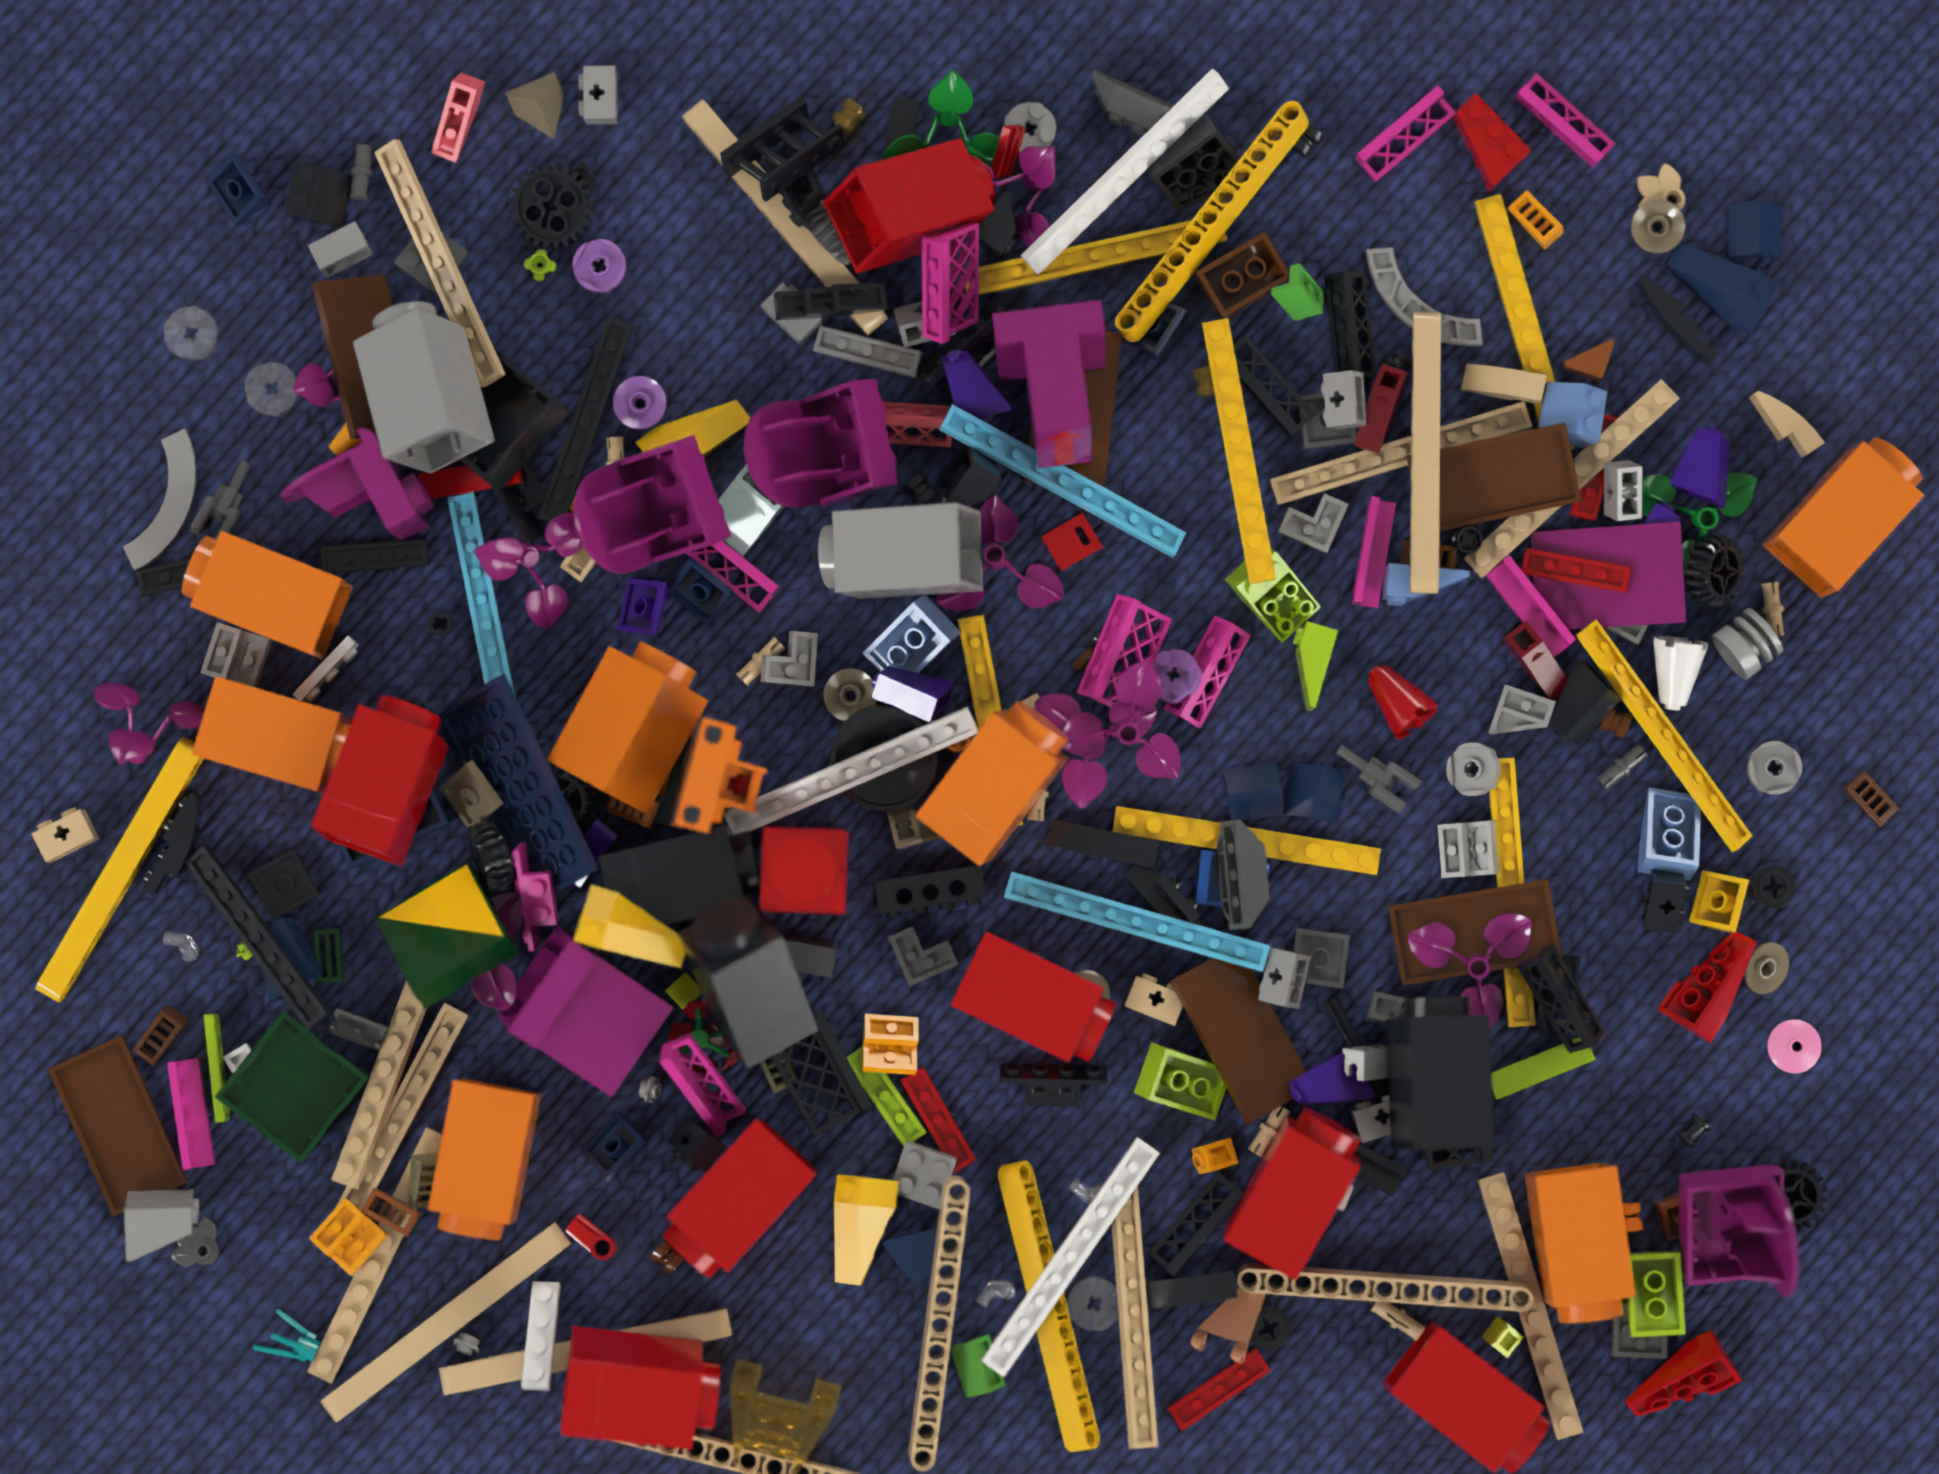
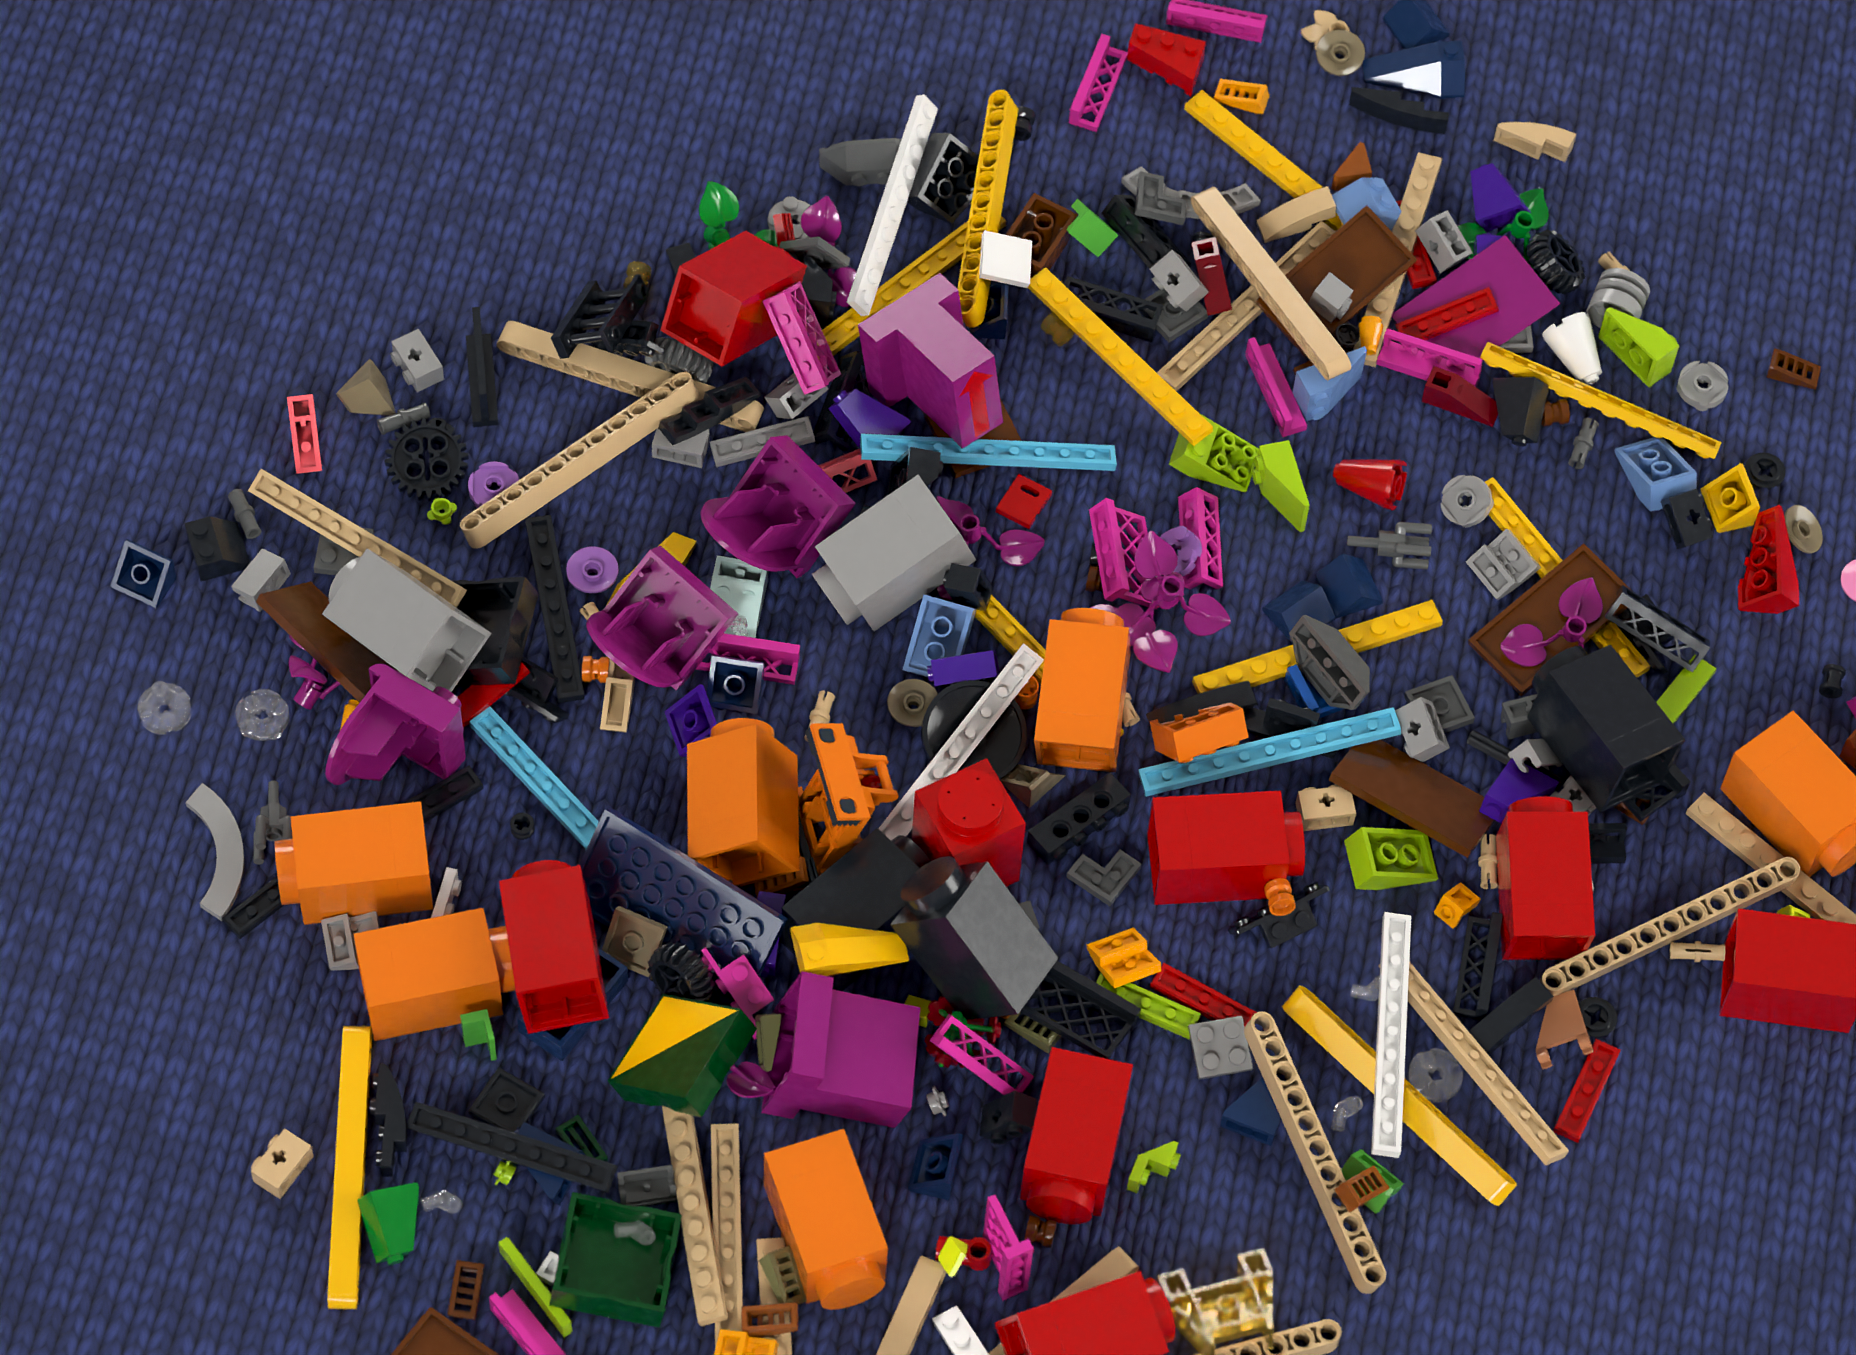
camera: 30 degrees left, 25 degrees down
(126, 942) = (390, 1221): none -> green slope
(132, 745) = (307, 1051): magenta plant -> none
(298, 815) = (478, 1030): none -> bright green panel
(327, 1067) = (636, 1230): none -> clear arm
(501, 557) = (552, 722): magenta plant -> none
(535, 949) = (767, 1035): none -> olive slope
(556, 149) = (403, 417): none -> dark grey pin
(576, 1243) = (952, 1255): none -> neon yellow slope
(613, 1292) = (1008, 1254): none -> dark pink fence
(650, 143) = (481, 375): none -> black fence
(674, 291) = (578, 460): none -> tan beam
(736, 537) = (739, 626): none -> clear arm
(798, 666) = (853, 700): light grey plate -> none
(809, 1249) = (1156, 1160): none -> lime slope
(860, 1219) = (1189, 1103): yellow wedge -> none
(937, 1379) = (1349, 1195): none -> dark orange slope
(958, 615) = (968, 586): none -> black brick
(1017, 191) = (819, 250): none -> dark grey tile
(1054, 1072) = (1279, 895): none -> orange wheel
(1083, 872) = (1201, 733): none -> orange wedge
(1191, 294) = (1005, 259): none -> white tile
(1317, 530) = (1219, 393): light grey plate -> none
(1374, 300) = (1155, 205): none -> dark grey plate
(1471, 501) = (1331, 298): none -> light grey brick
(1490, 552) = (1370, 332): none -> light orange cone
(1521, 711) = (1474, 442): light grey wing -> none
(1738, 705) = (1640, 345): none -> lime slope
(1846, 515) = (1629, 173): orange container -> none

